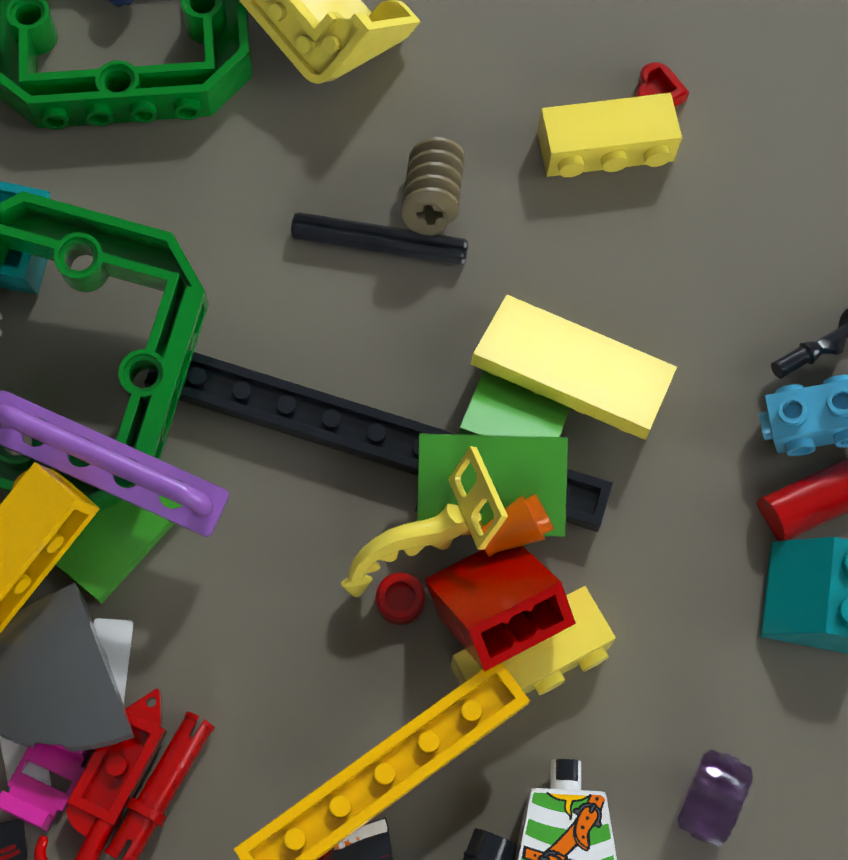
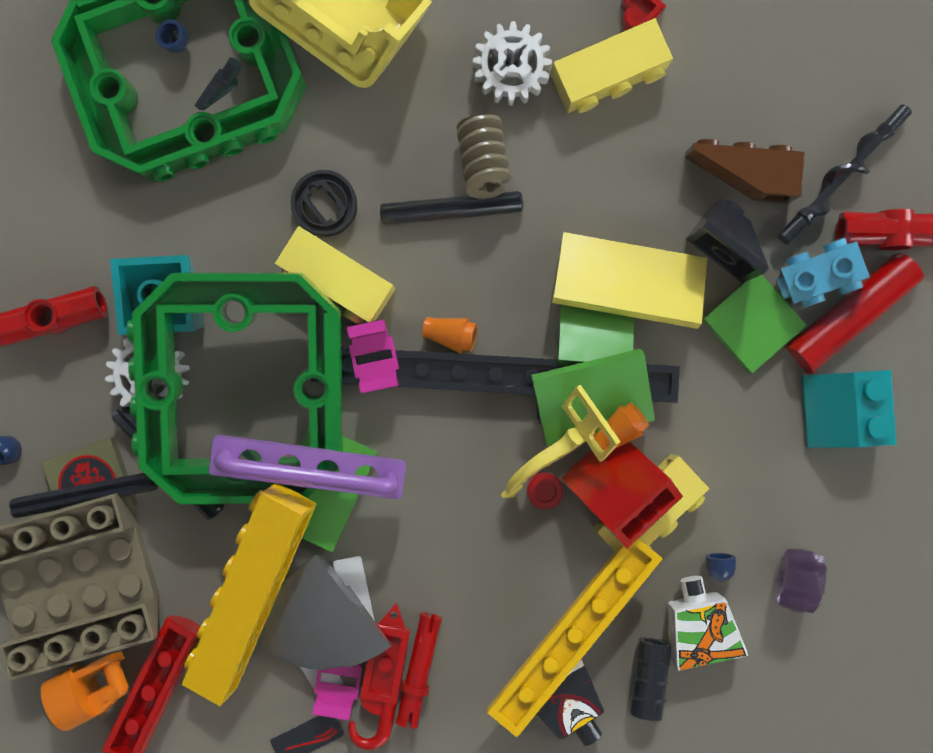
camera: 15 degrees left, 20 degrees up
(153, 35) = (220, 85): none -> black bar
(232, 347) = (368, 339): none -> dark pink piece
(233, 172) = (320, 179): none -> black piece
(237, 292) = (337, 276): none -> light yellow brick
(336, 373) = (452, 333): none -> orange cone
(494, 105) = (520, 50): none -> white gear
(611, 757) = (721, 566): none -> dark blue hinge
(704, 349) = (729, 241): none -> black slope
(720, 460) = (753, 323): none -> bright green tile
(757, 286) = (755, 172): none -> reddish brown slope

